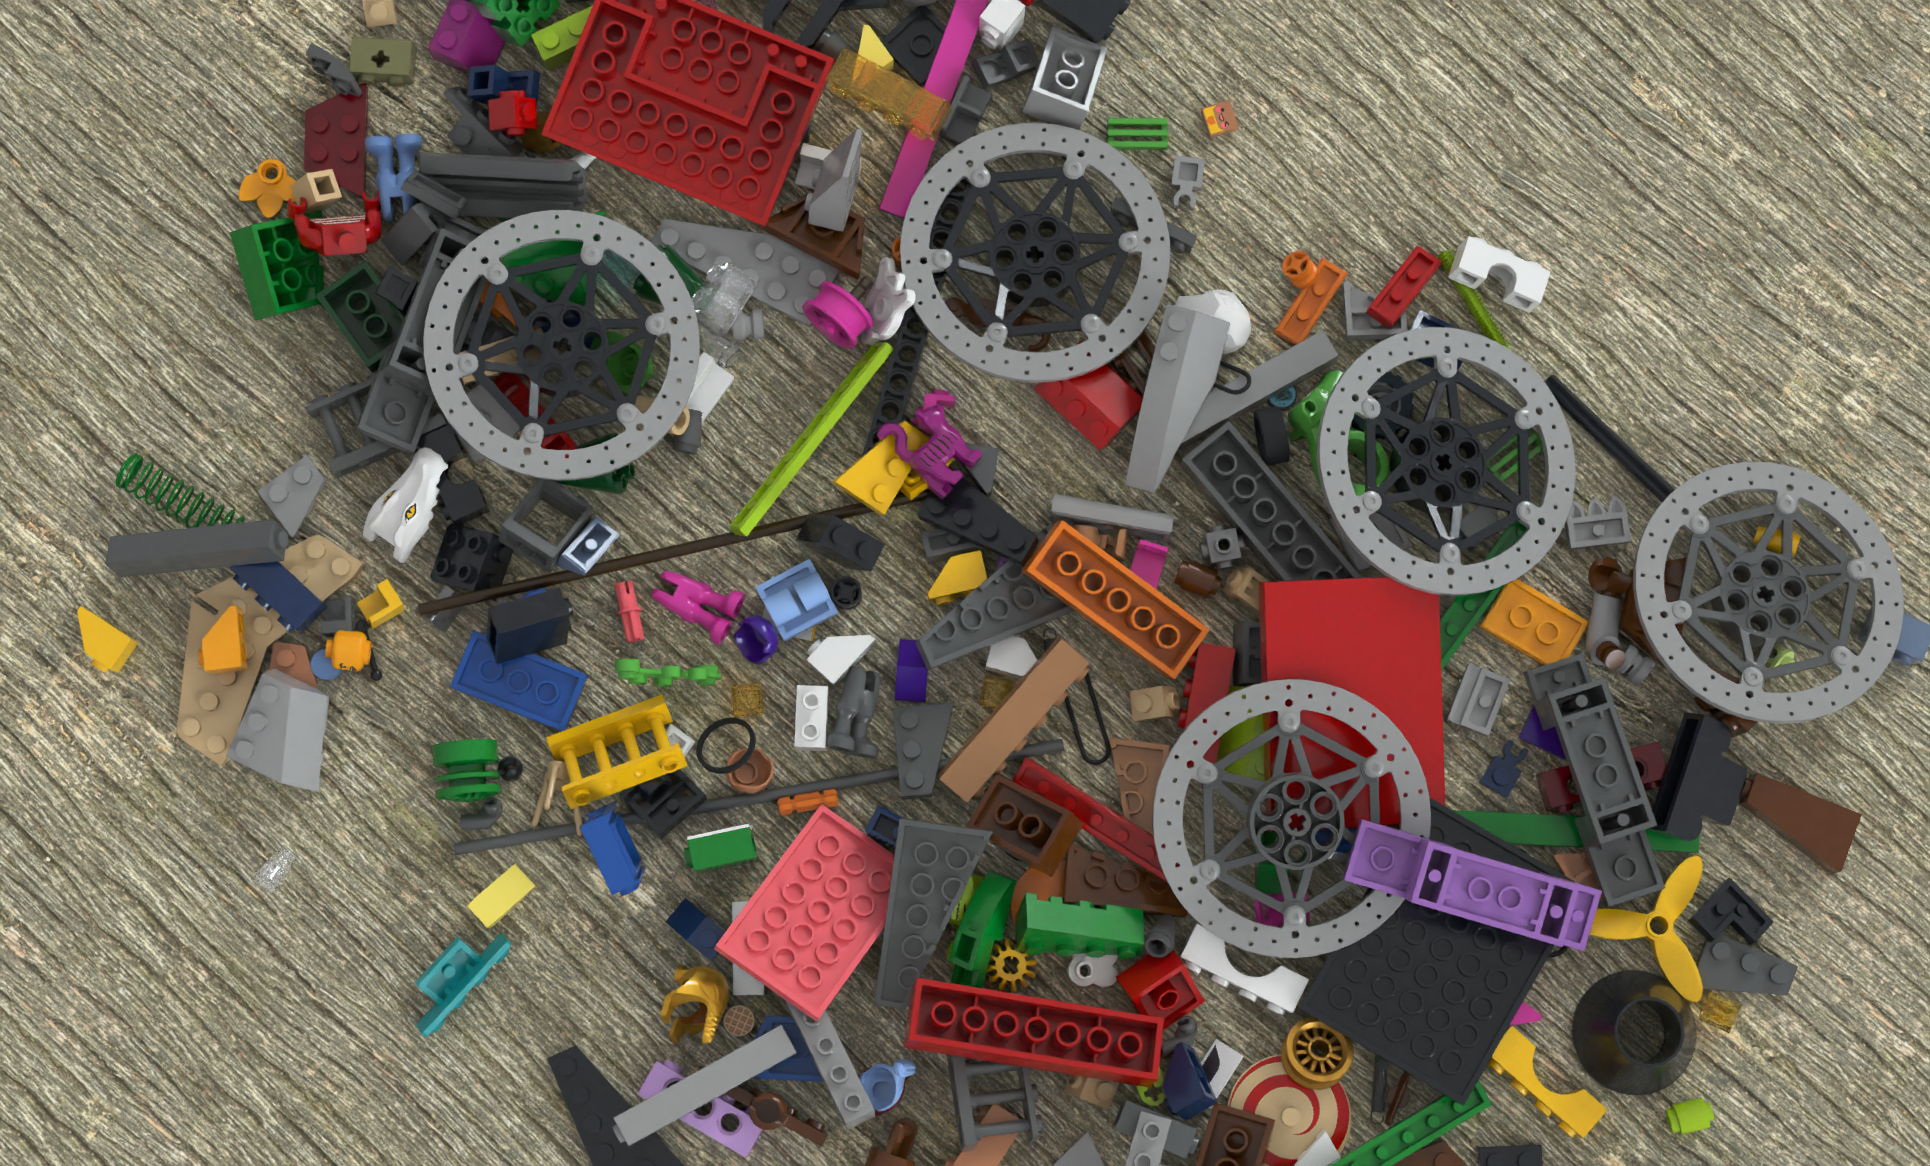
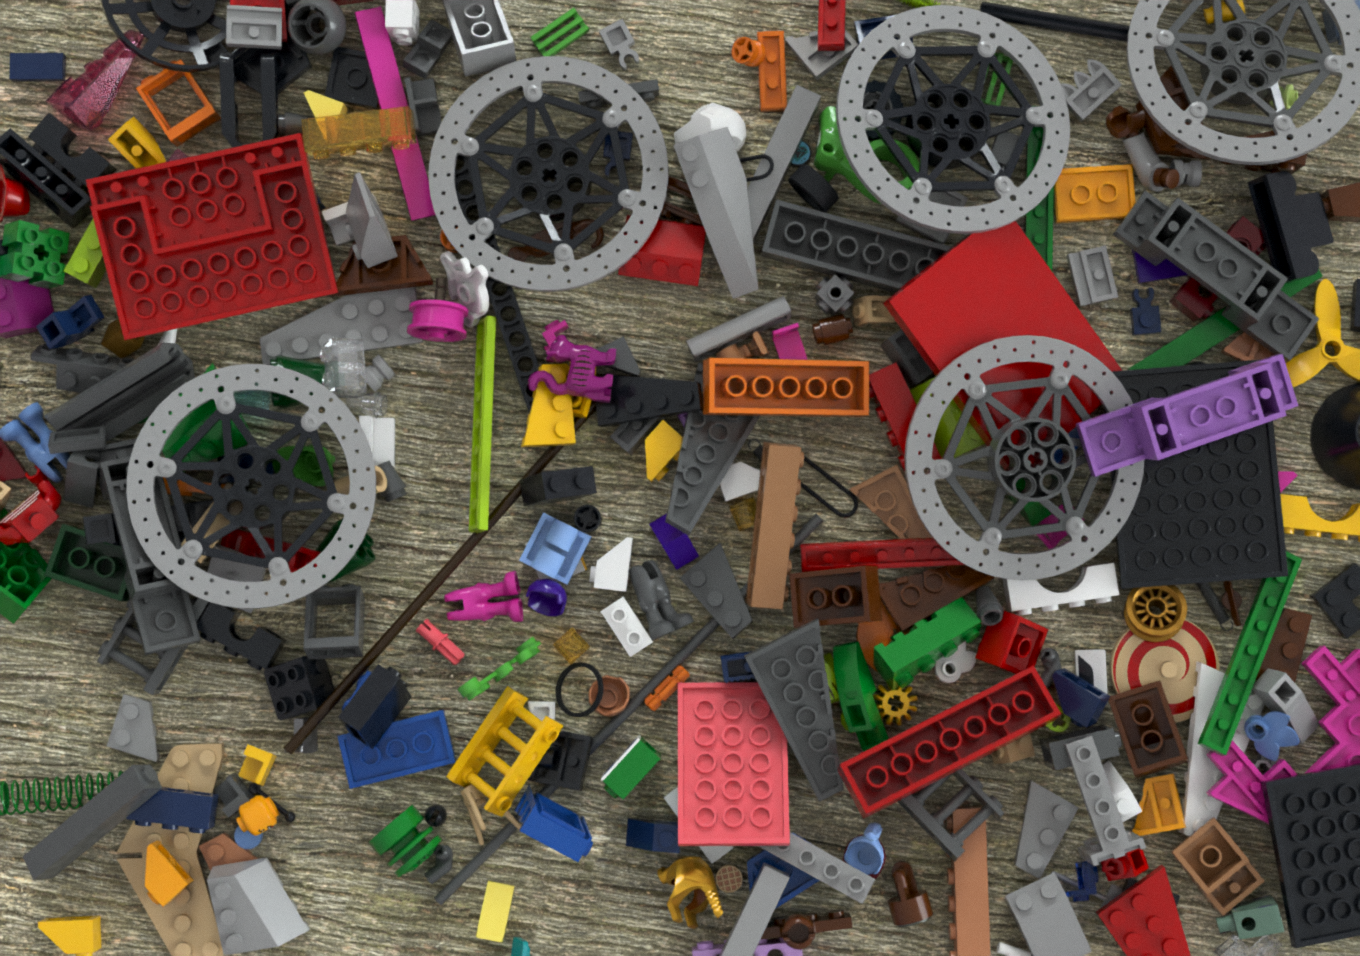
camera: 30 degrees left, 5 degrees up
(405, 508) = (223, 684): white animal -> none
(512, 113) = (92, 339): red brick -> none
(588, 547) = (377, 618): sand blue slope -> none
(1126, 275) = (626, 145): none -> dark blue plate
(1154, 703) = (864, 441): tan bracket -> none

